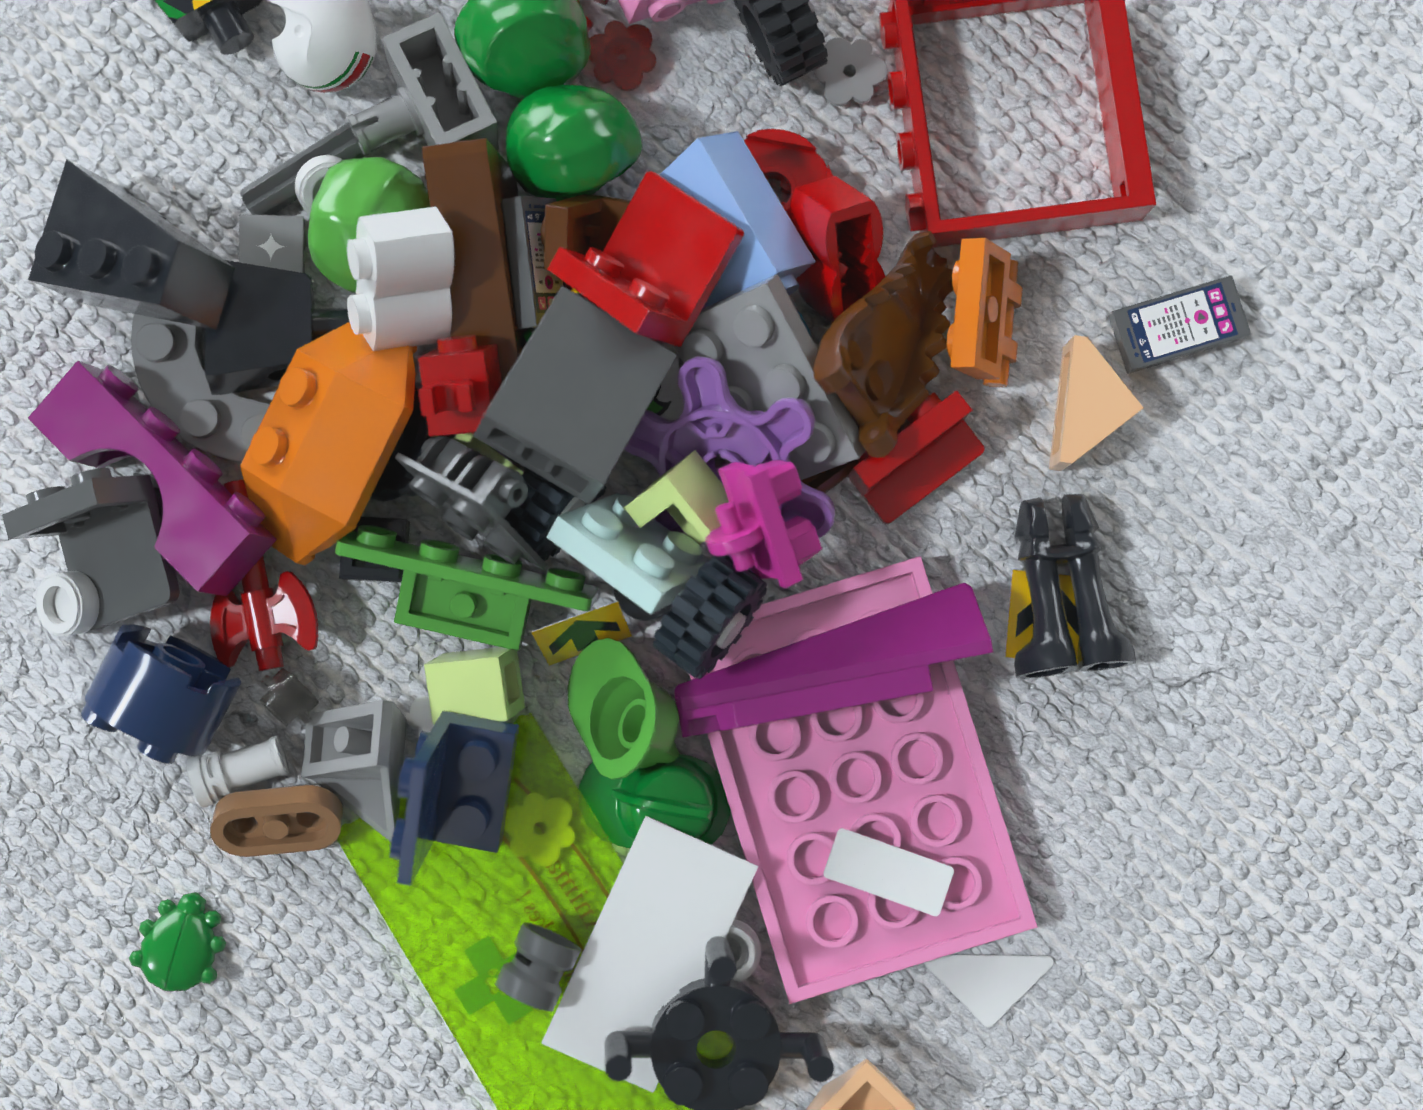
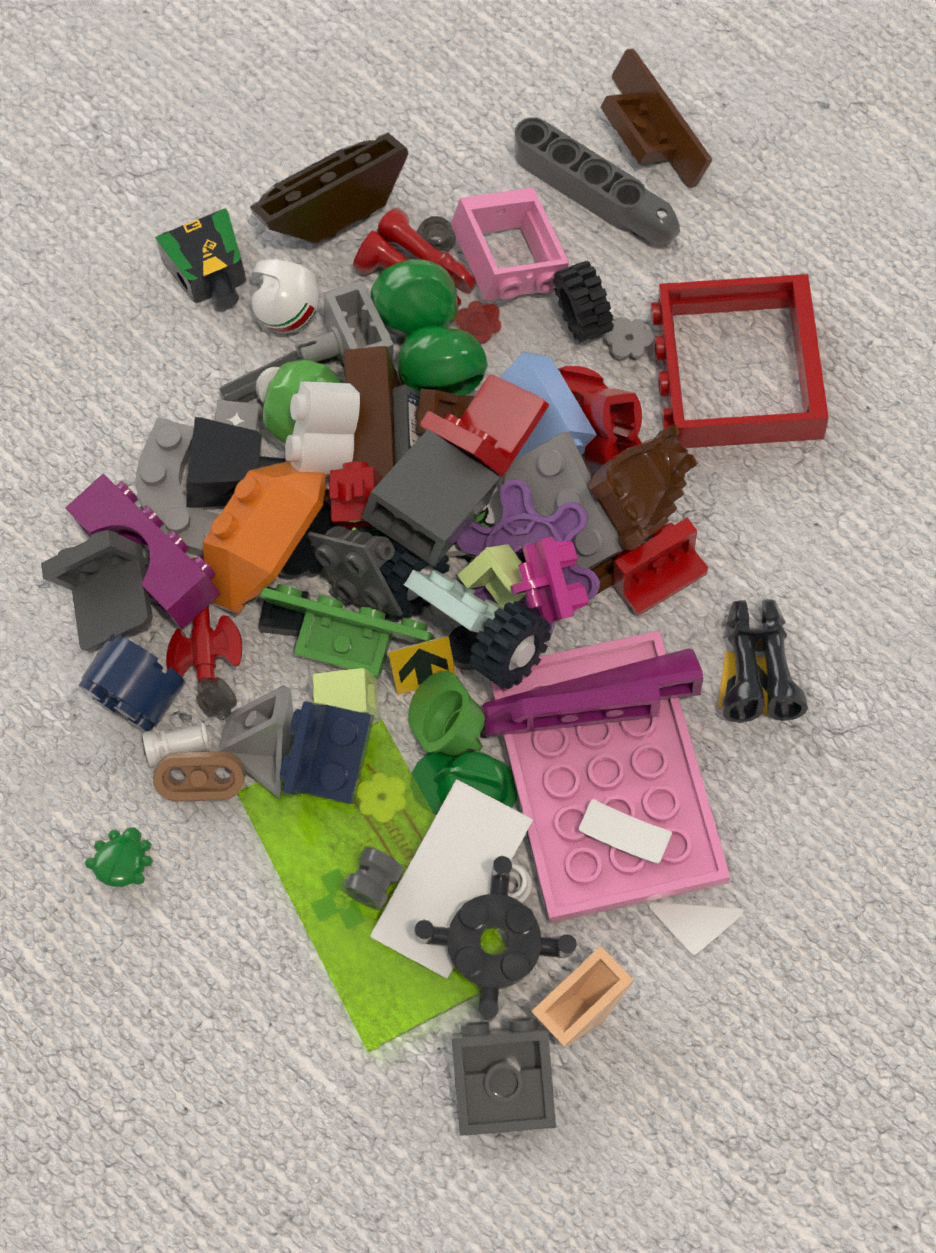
camera: 10 degrees right, 20 degrees down
(67, 603) = (73, 631): white tile -> none
(126, 256) = (143, 414): black wedge -> none
(984, 312) = (711, 478): orange plate -> none
(1088, 403) = (784, 544): light nougat slope -> none
(1179, 324) = (846, 501): tile -> none

